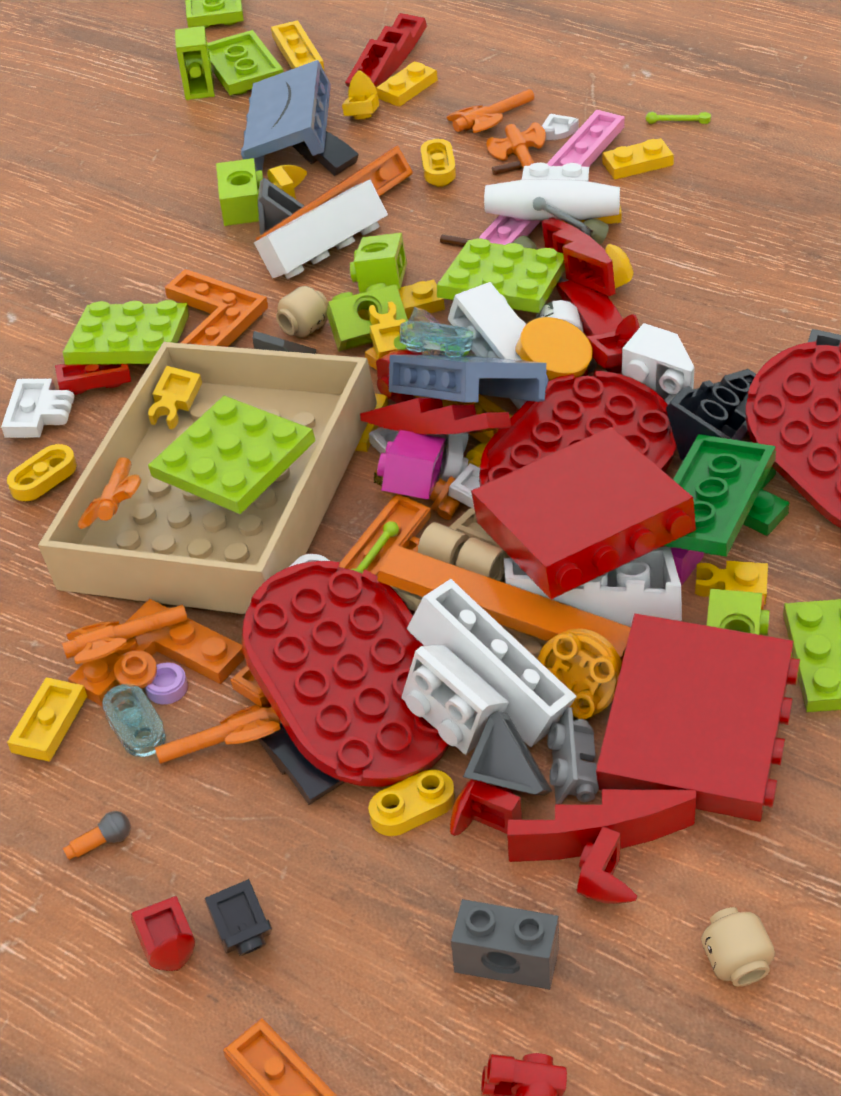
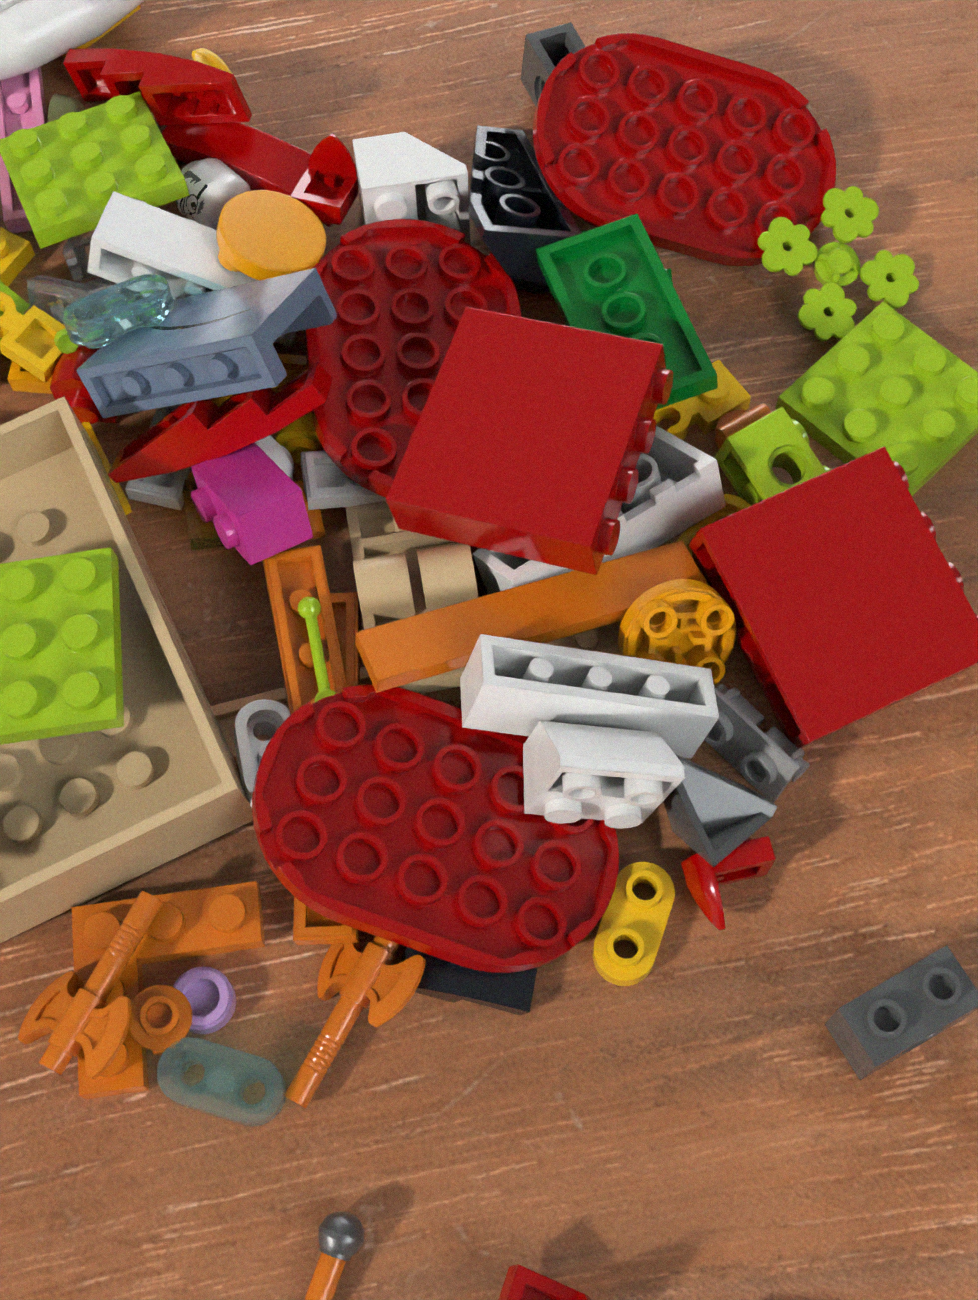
camera: 45 degrees left, 20 degrees up
(47, 719) = (110, 1169): yellow plate -> none
(238, 918) = (608, 1226): black bracket -> none
(593, 227) = (118, 38): hinge -> none
(597, 870) = (897, 843): red plate -> none
(635, 814) = (860, 783): red slope -> none

